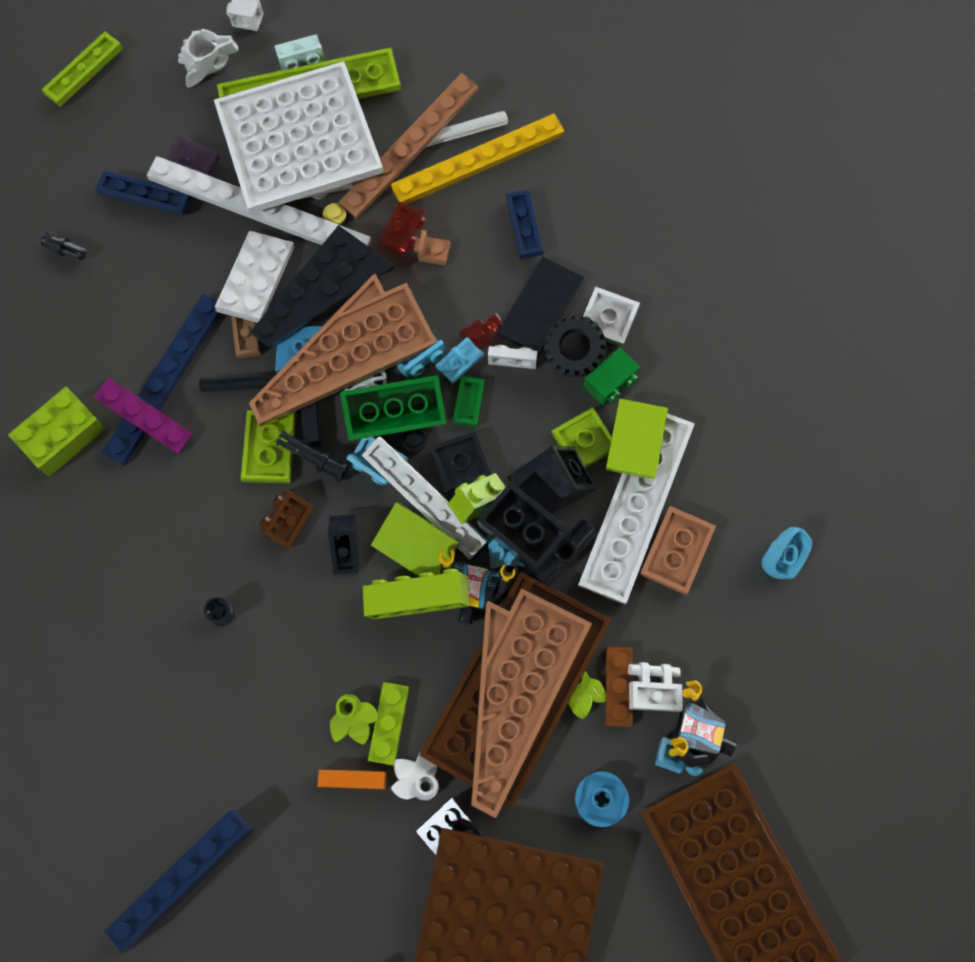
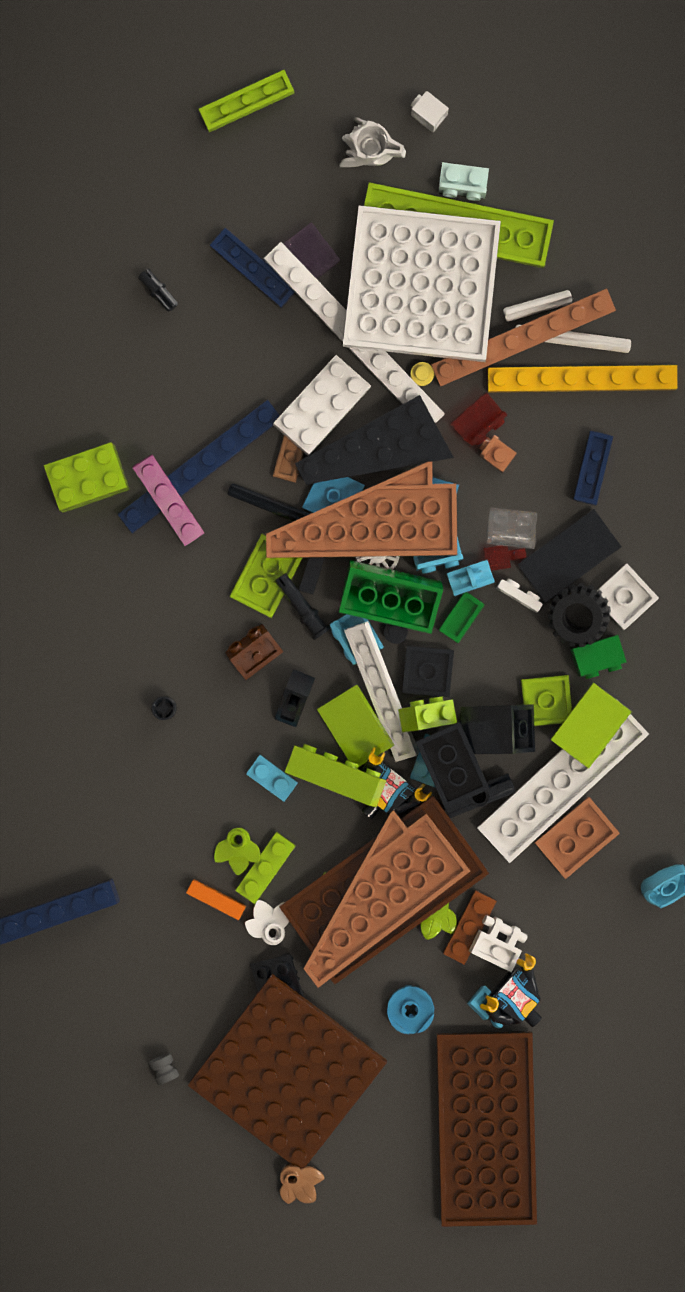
camera: 30 degrees right, 15 degrees up
(356, 631) = (272, 778): none -> medium azure plate
(405, 122) = (537, 305): none -> white axle
(476, 301) = (512, 528): none -> clear bracket

